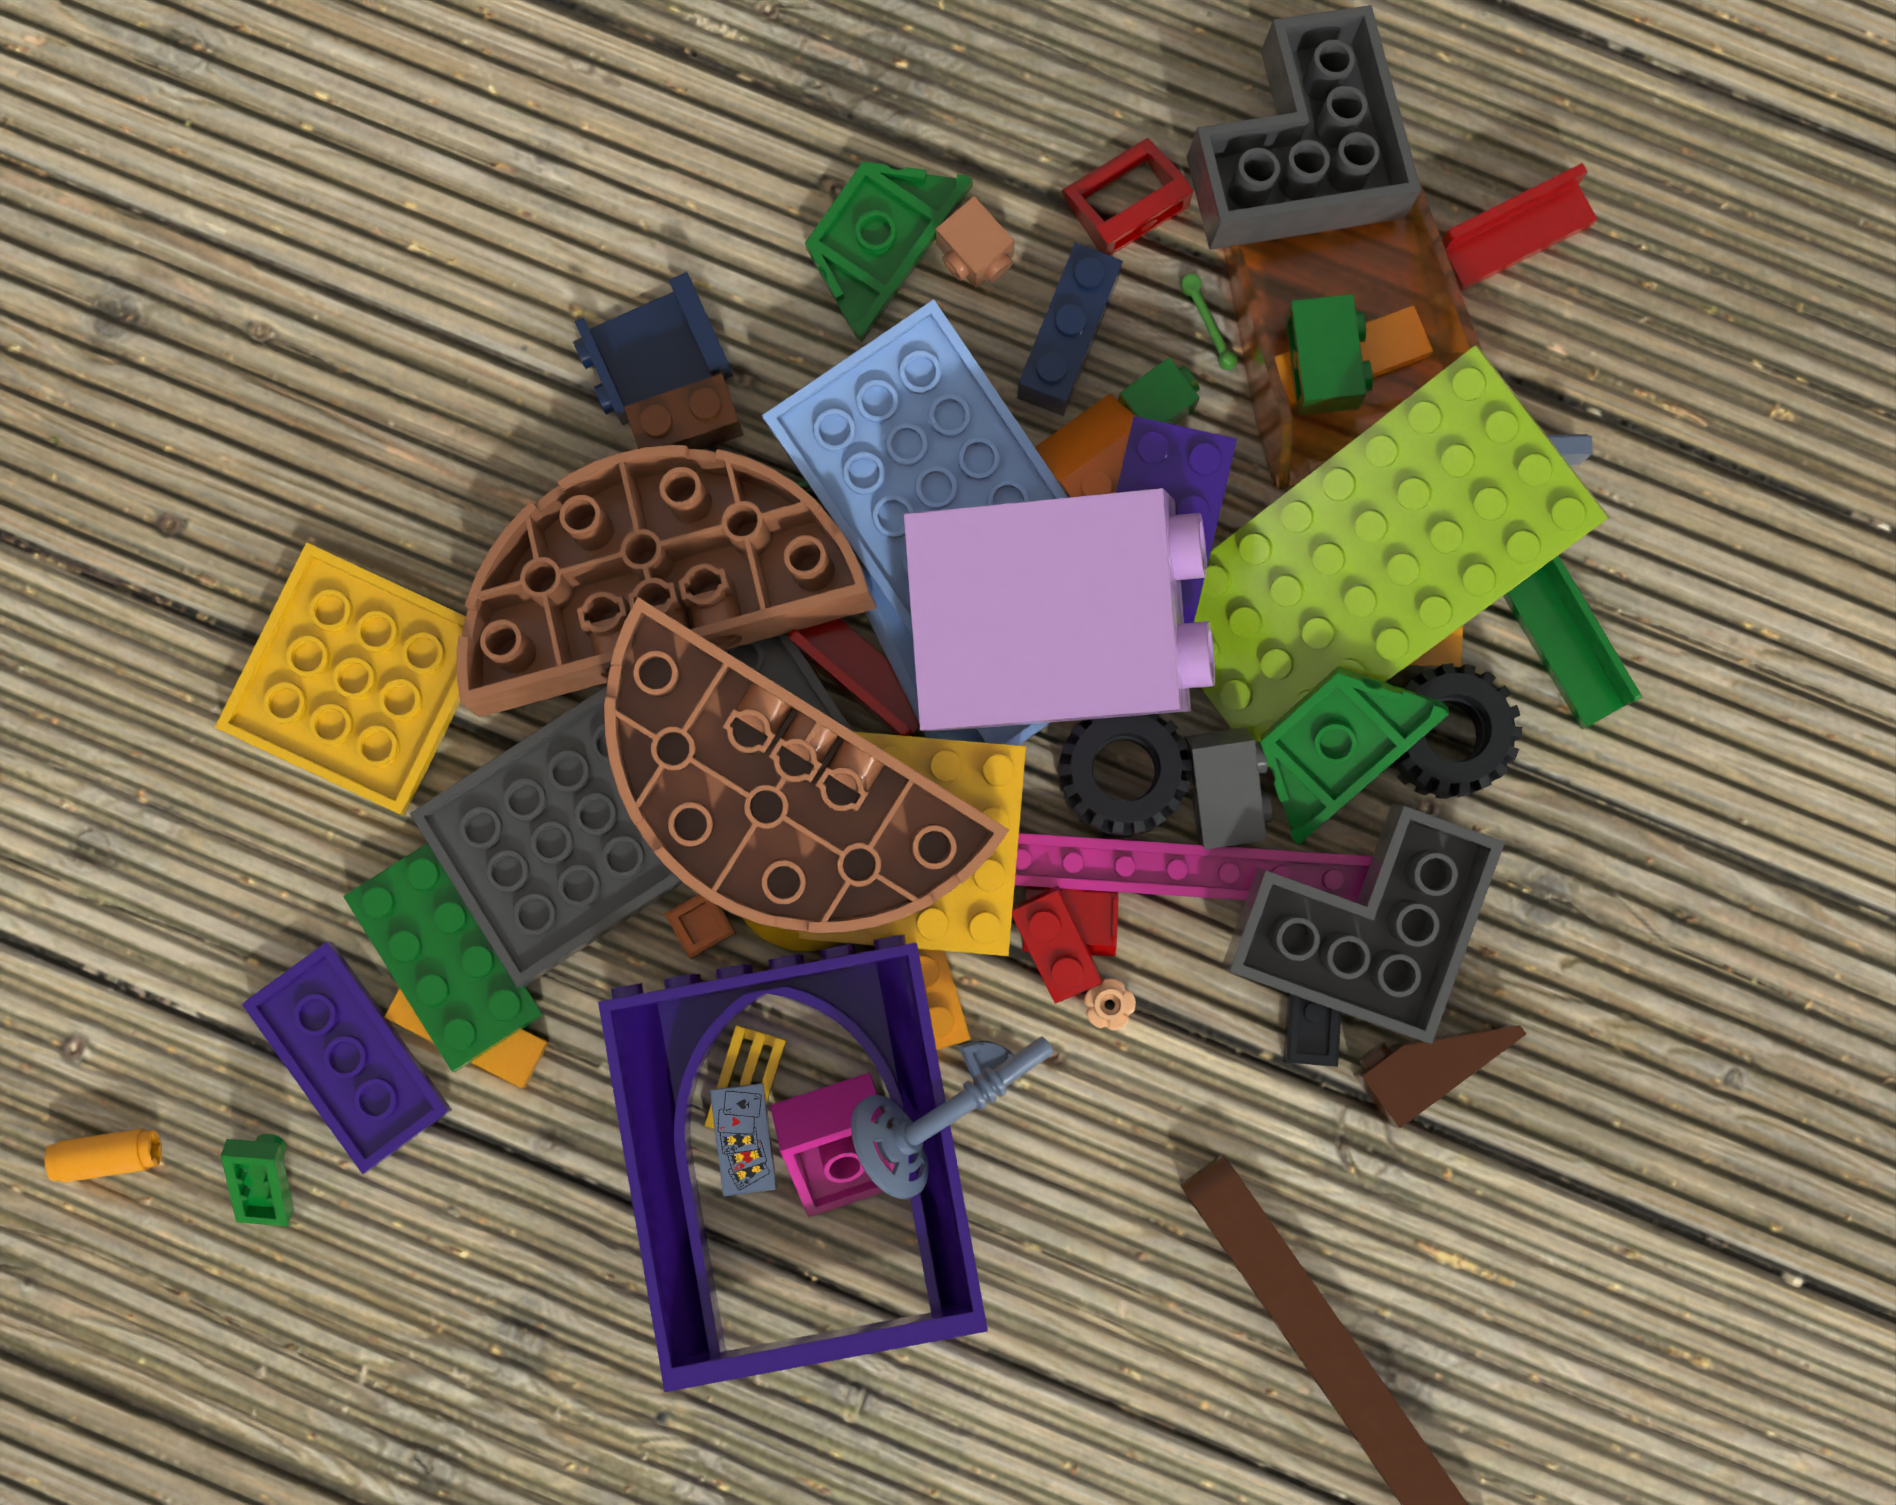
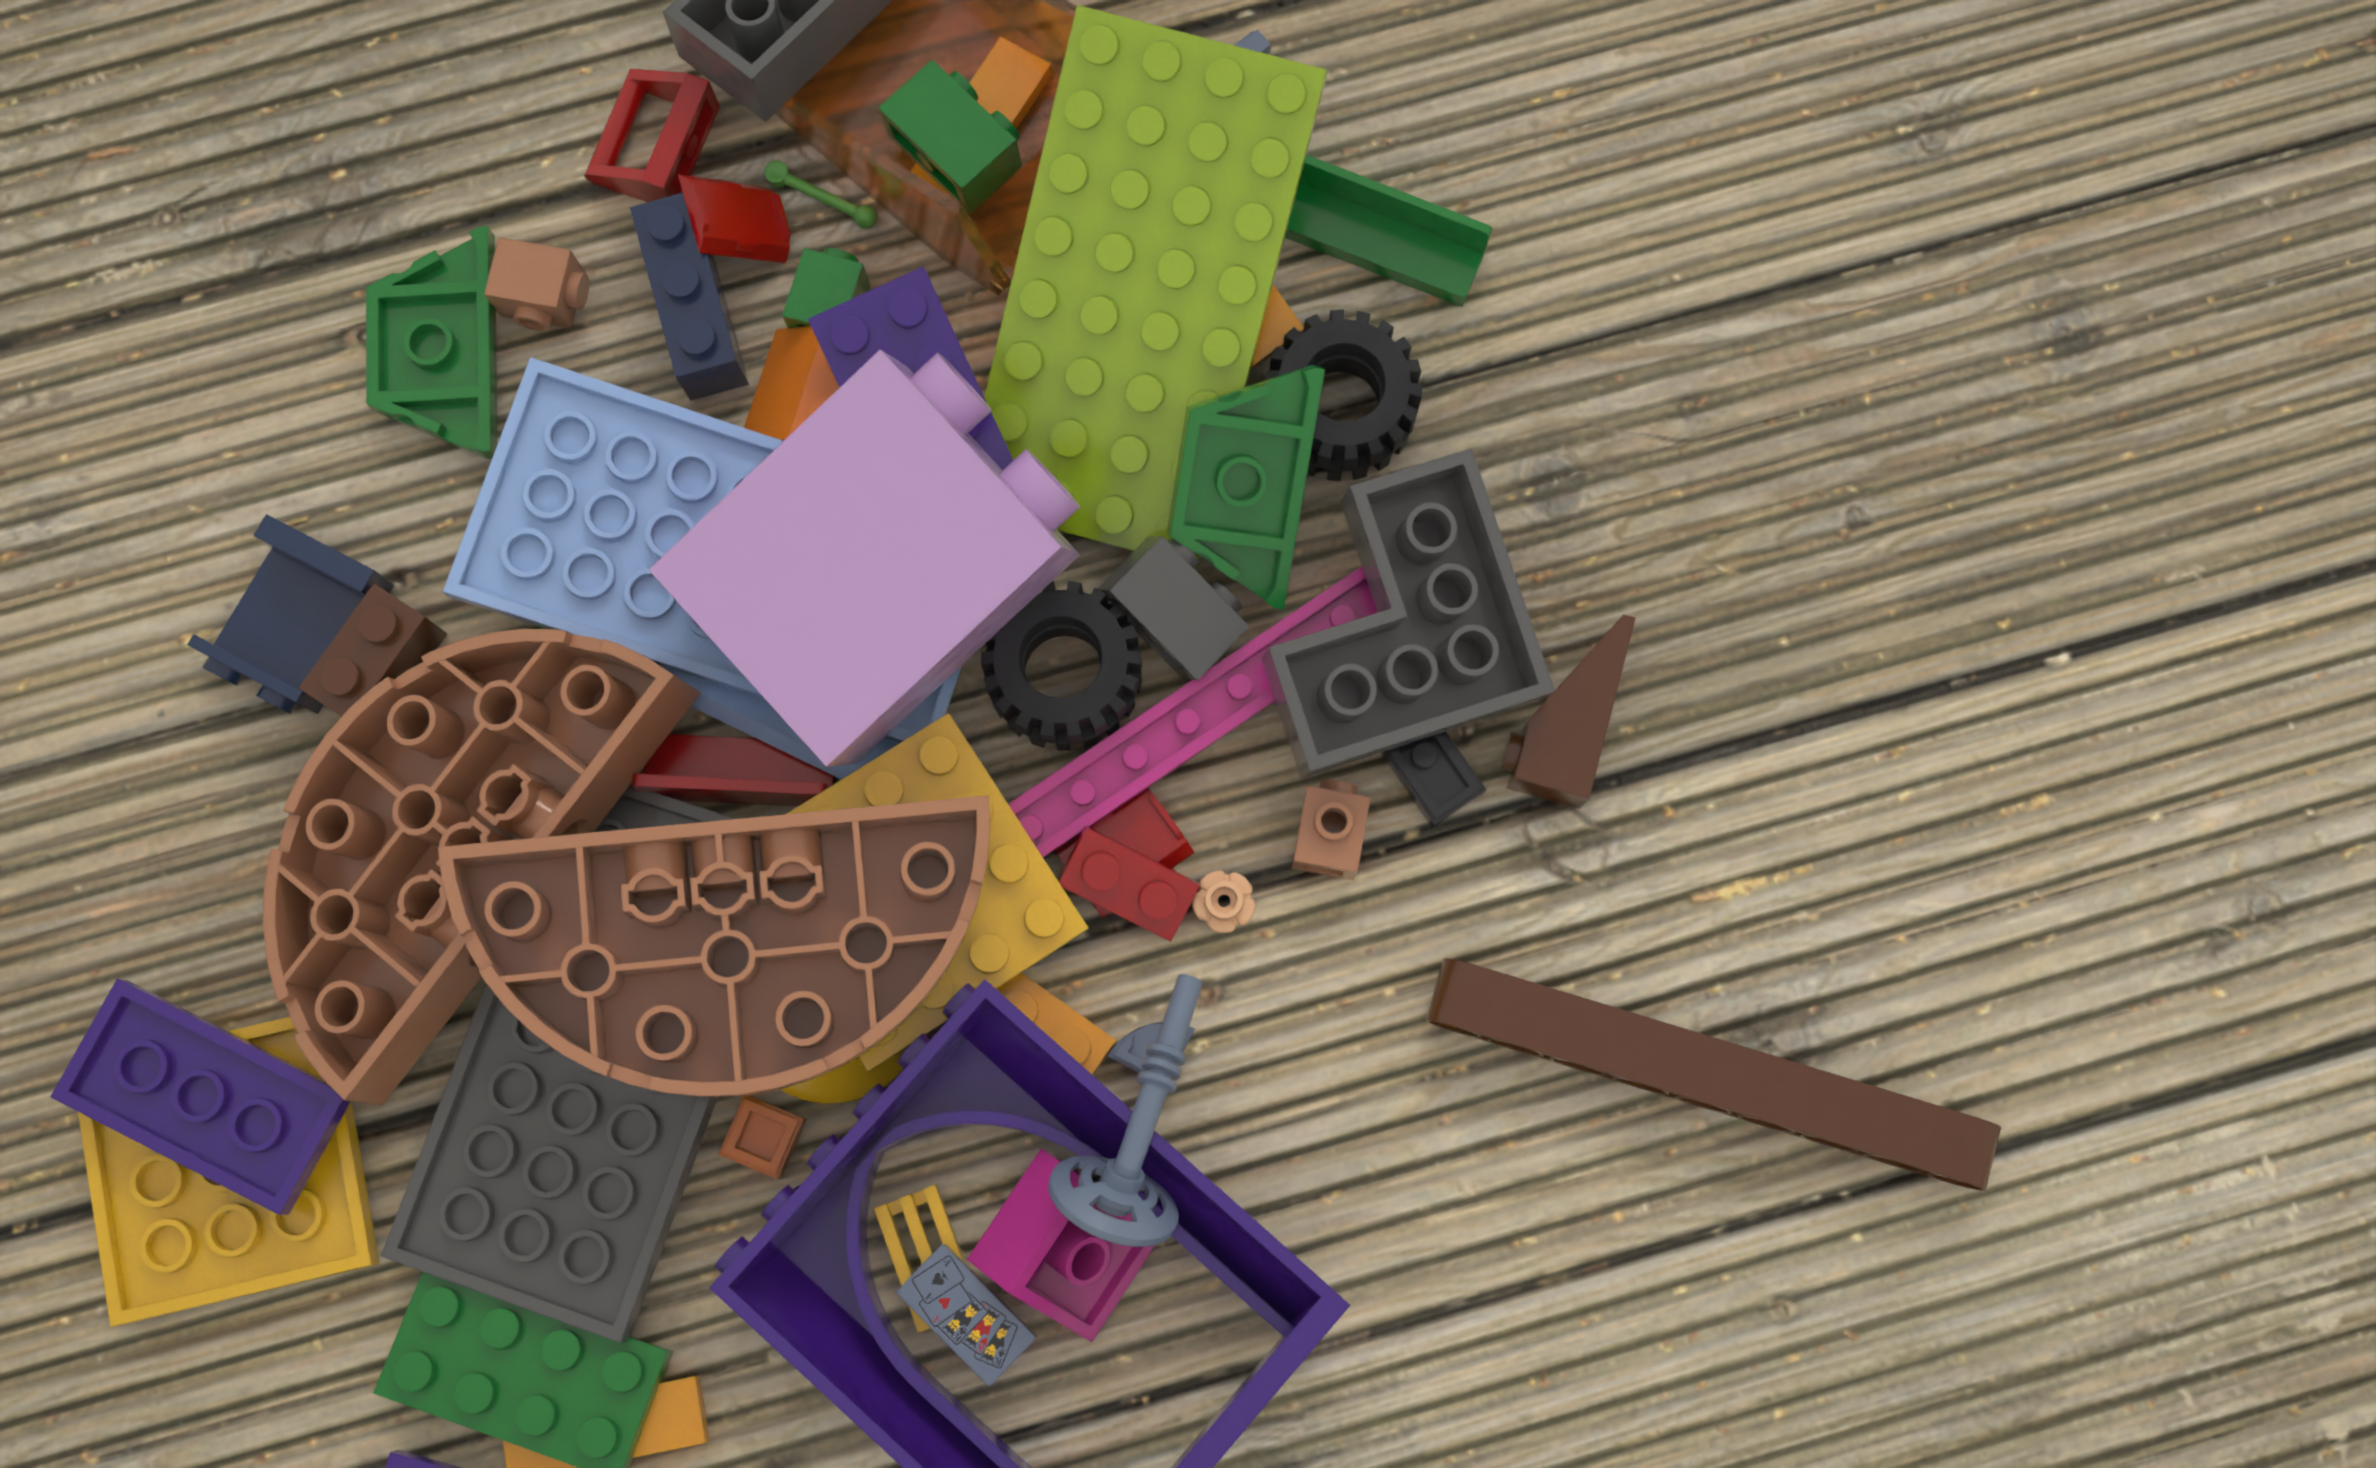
camera: 40 degrees left, 5 degrees down
(374, 627) = (201, 1096): none -> dark purple plate
(1140, 300) = (736, 219): none -> red piece
(1215, 1013) = (1331, 830): none -> nougat brick

